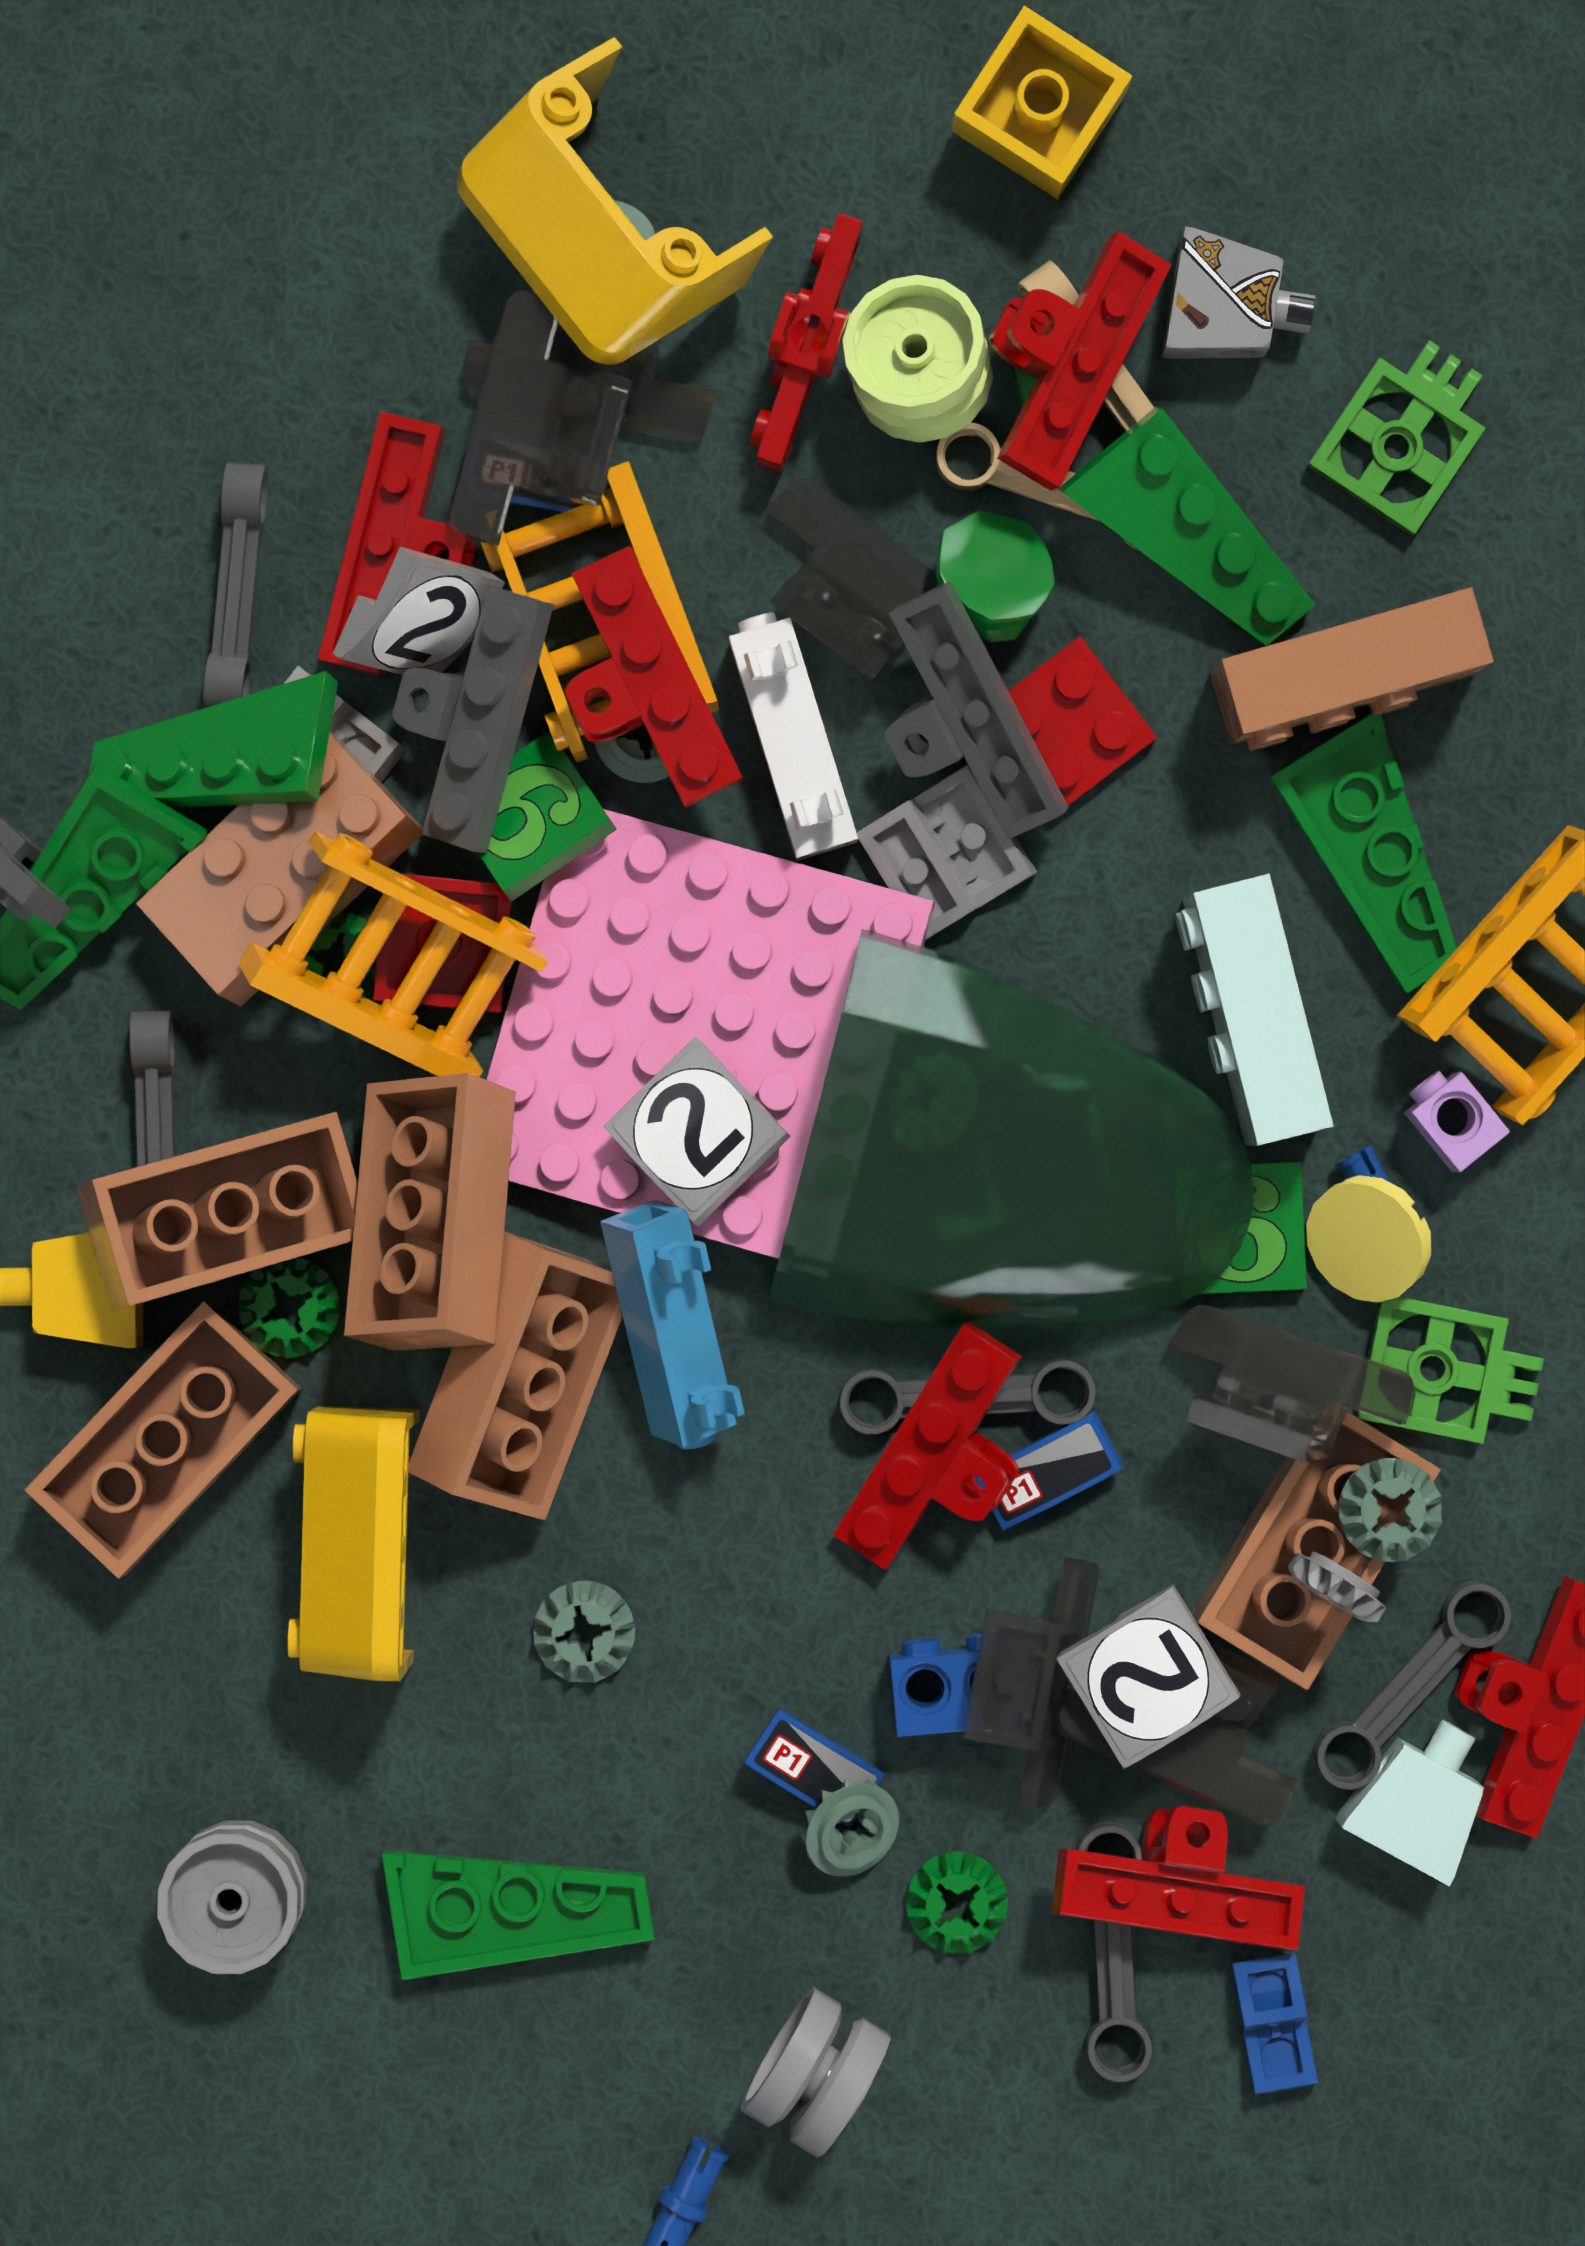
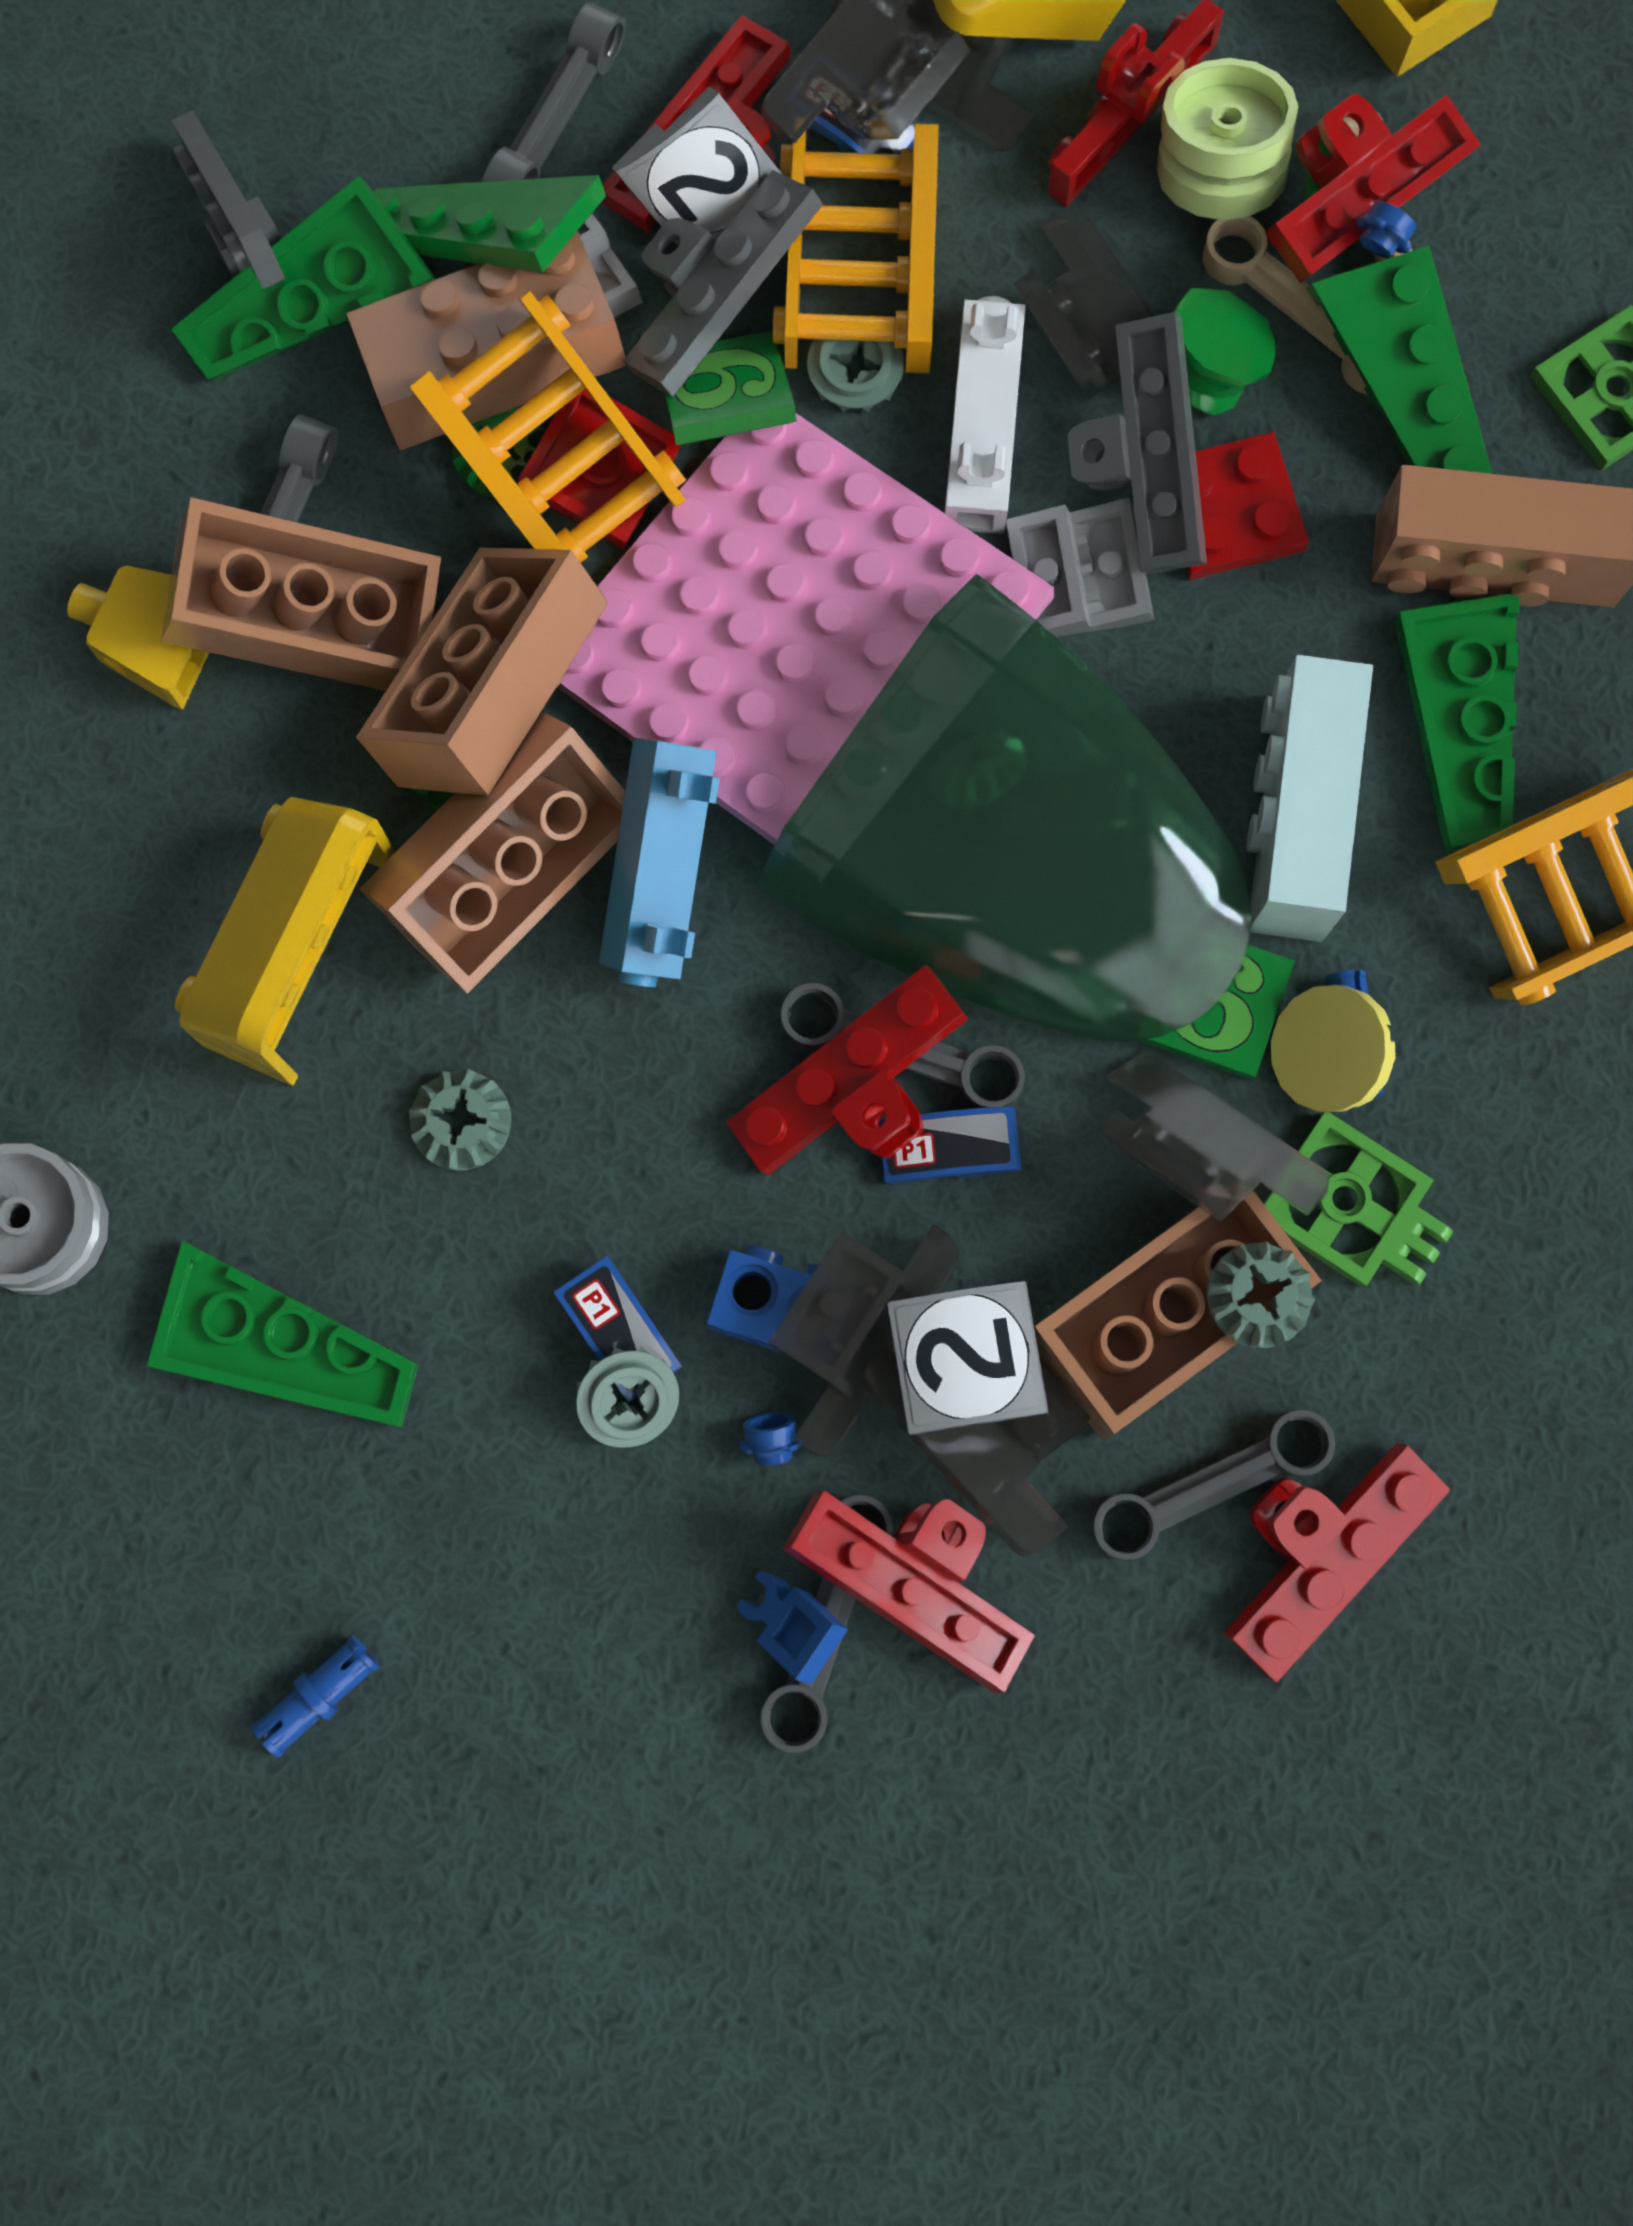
camera: 20 degrees right, 10 degrees down
(163, 1439) = (154, 785): nougat brick -> none
(317, 1316) = (303, 743): green gear -> none
(647, 681) = (874, 299): red plate -> none
(696, 1131) = (756, 695): slope -> none
(823, 2076) = (488, 1604): light grey wheel -> none
(956, 1872) = (726, 1528): green gear -> none
(994, 1808) = (770, 1438): none -> blue plate
(1091, 1970) = (797, 1629): none -> blue plate
(1114, 413) = (1386, 230): none -> blue plate
(1228, 300) = (1516, 205): light grey torso -> none
(1274, 2024) = (952, 1760): blue slope -> none
(1337, 1586) = (1185, 1336): light grey gear -> none
(1419, 1803) = (1177, 1599): light aqua torso -> none
(1482, 1125) = (1446, 1004): lavender brick -> none

